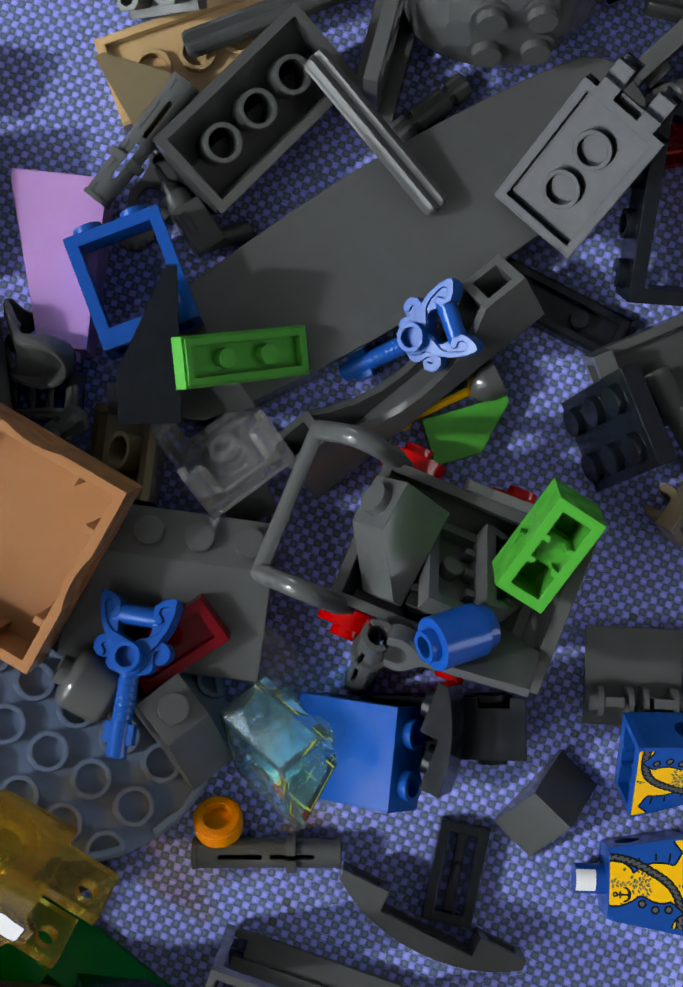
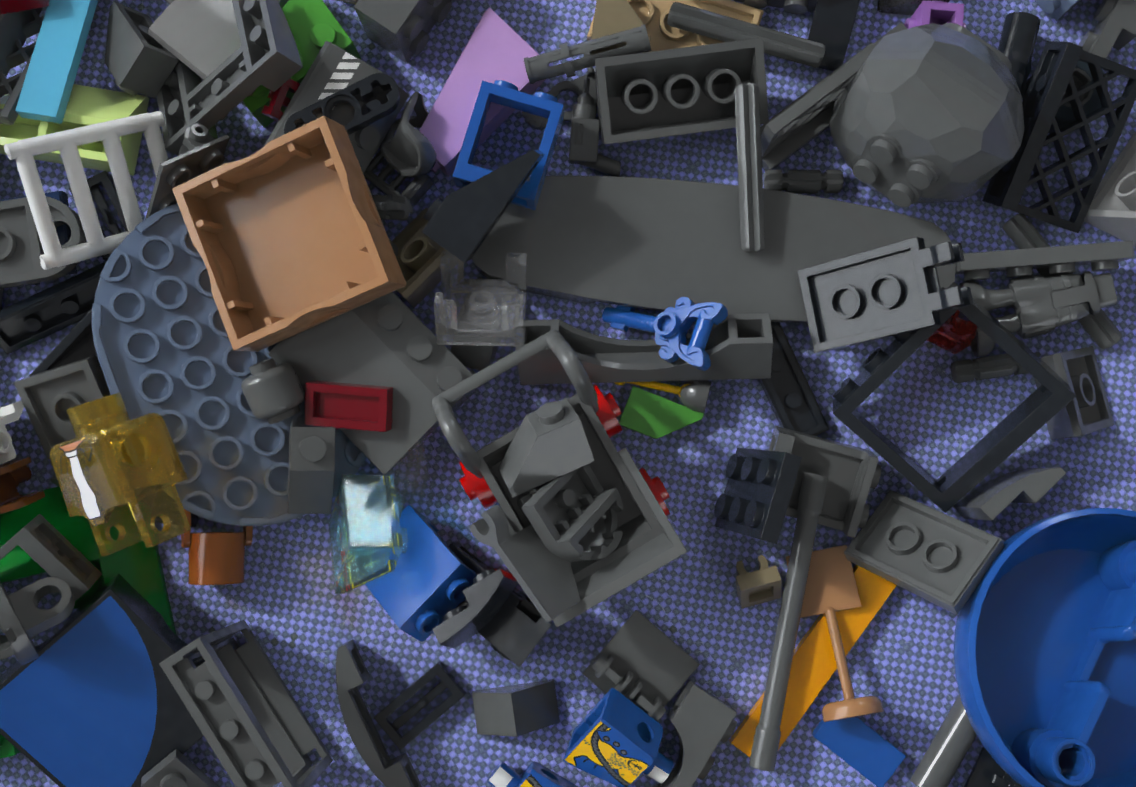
camera: 40 degrees right, 0 degrees up
(132, 658) = (312, 394): blue piece -> none
(157, 883) = (216, 556): none -> dark orange piece
(218, 821) = (289, 547): light orange tile -> none
(239, 356) = (538, 248): bright green tile -> none
(270, 853) = (305, 593): dark grey pin -> none
(367, 657) = (466, 513): dark grey pin -> none
(457, 636) = (531, 545): blue brick -> none
(548, 545) = (640, 533): bright green brick -> none

